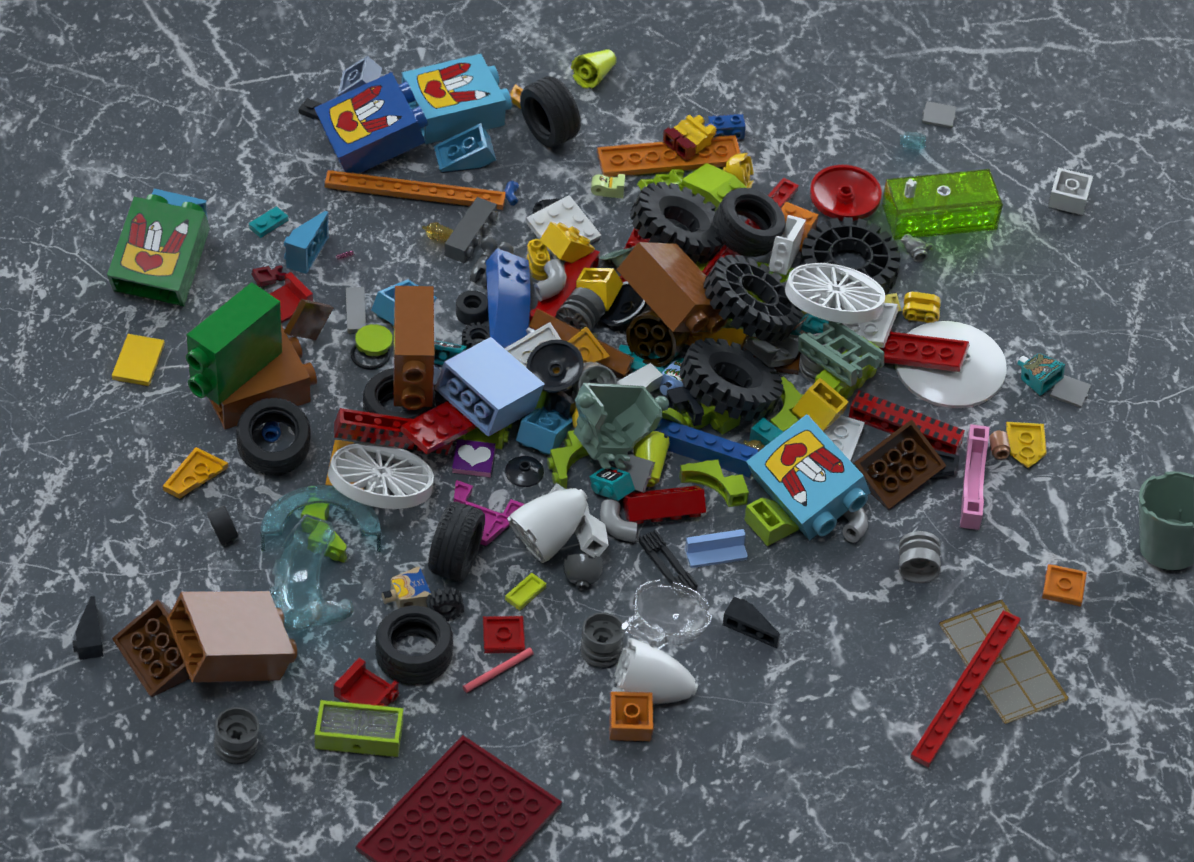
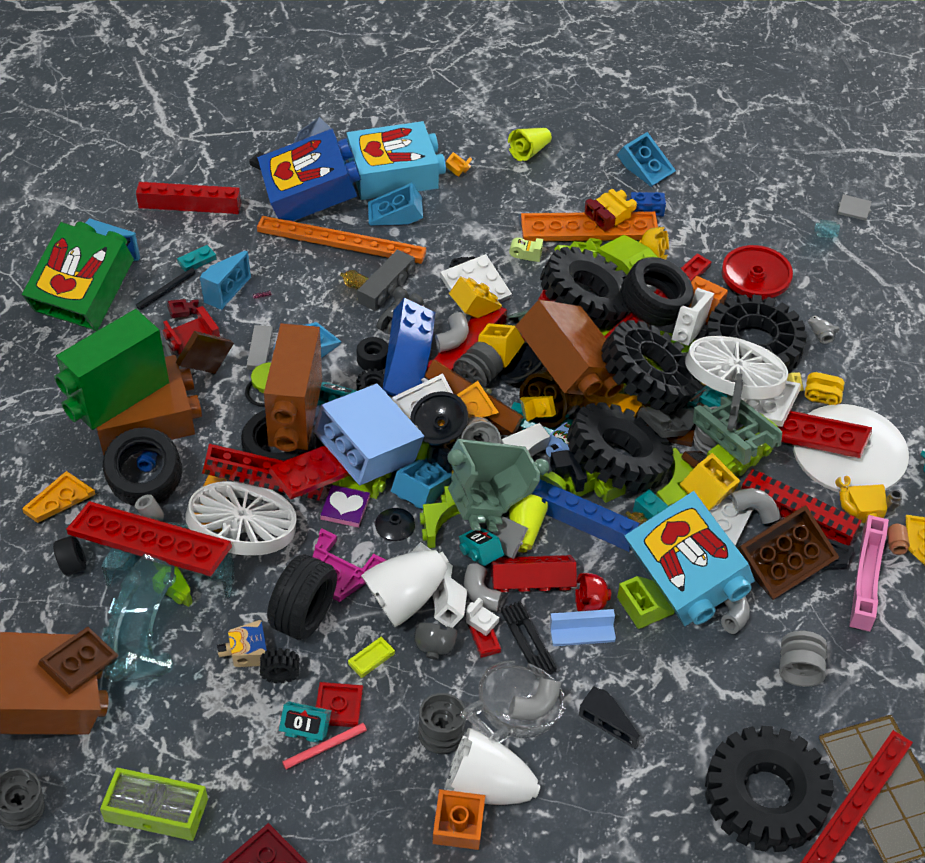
camera: 10 degrees right, 0 degrees up
(138, 359) = (35, 380): yellow tile -> none
(245, 156) = (188, 197): none -> red brick
(246, 254) = (152, 297): none -> black bar
(265, 612) = (78, 660): none -> reddish brown tile
(291, 476) = (149, 508): none -> light grey cylinder
(299, 499) = (150, 537): none -> red plate
(364, 687) = (174, 754): red panel -> none
(414, 621) = (229, 682): black tyre -> none
(477, 649) = (304, 721): none -> teal brick
(510, 189) = (430, 248): blue arm -> none
(537, 257) = (445, 308): yellow brick -> none
(550, 111) = (479, 176): black tyre -> none
(622, 548) = (480, 617): none -> white bracket
(626, 564) = (485, 645): none -> red tile
(646, 347) = (537, 407): none -> yellow slope
(686, 616) = (539, 704): none -> light grey cylinder
(709, 473) = (586, 544): lime arch -> none
(719, 78) = (646, 160): none -> dark azure slope
(721, 516) = (592, 592): none -> red cylinder
(802, 384) = (693, 457): none -> reddish brown tile
(838, 328) = (735, 403): none -> dark grey tile
(866, 419) = (759, 501): none -> light grey cylinder
(903, 640) = (781, 756): none -> black tyre
(942, 204) = (852, 289): clear neon green piece -> none
(969, 410) = (867, 500): none -> yellow torso

